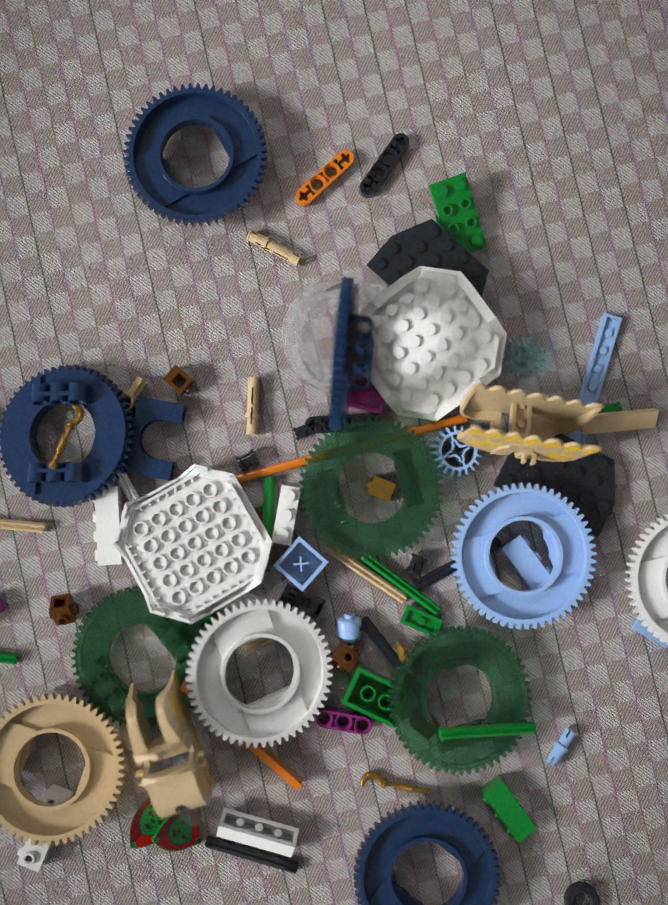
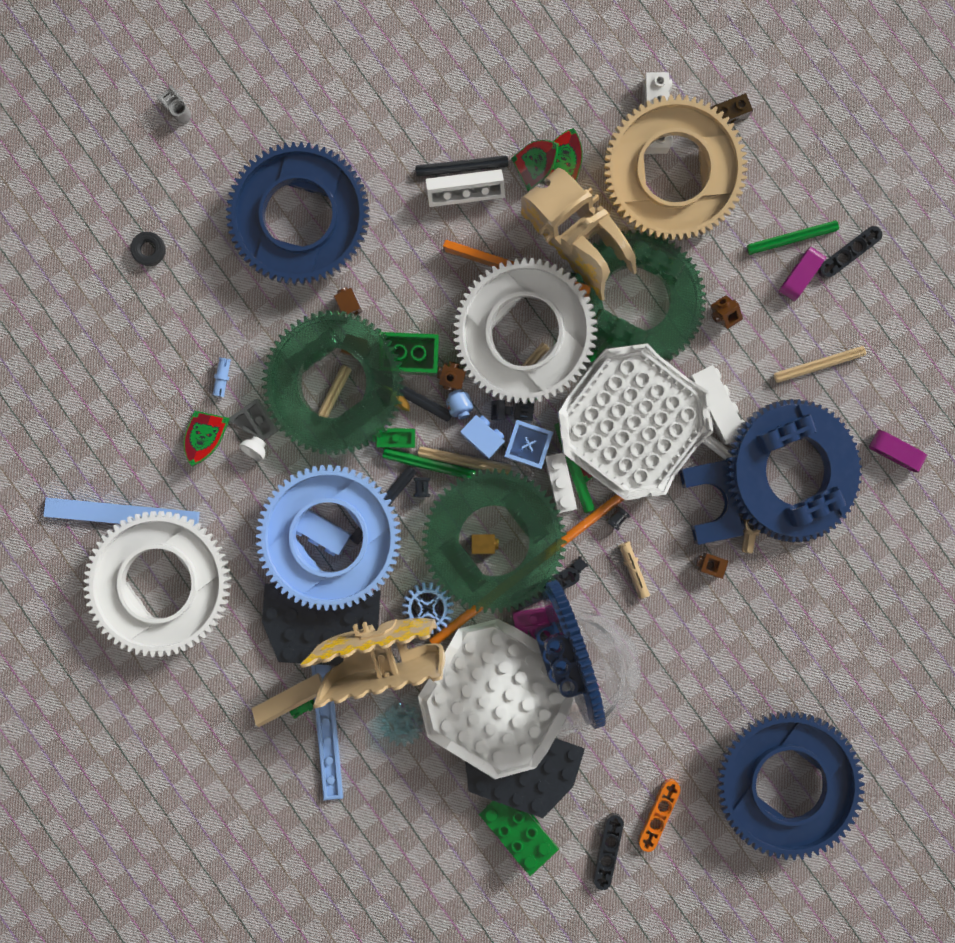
camera: 155 degrees right, 0 degrees up
(63, 441) = (794, 464): pearl gold piece -> none
(273, 247) = (679, 728): tan pin -> none
(341, 588) = (482, 436): none -> light blue brick
(351, 726) = (420, 317): magenta beam -> none
(383, 783) = (369, 278): pearl gold piece -> none
(413, 770) = (347, 301): none -> reddish brown brick
(459, 689) = (335, 390): none -> tan axle
(487, 730) = (297, 365): green axle -> none
(507, 809) = (248, 302): green brick -> none
(545, 693) = (255, 420): none -> dark grey wing
(557, 667) = (254, 448): none -> white piece
(600, 698) = (203, 436): none -> shield

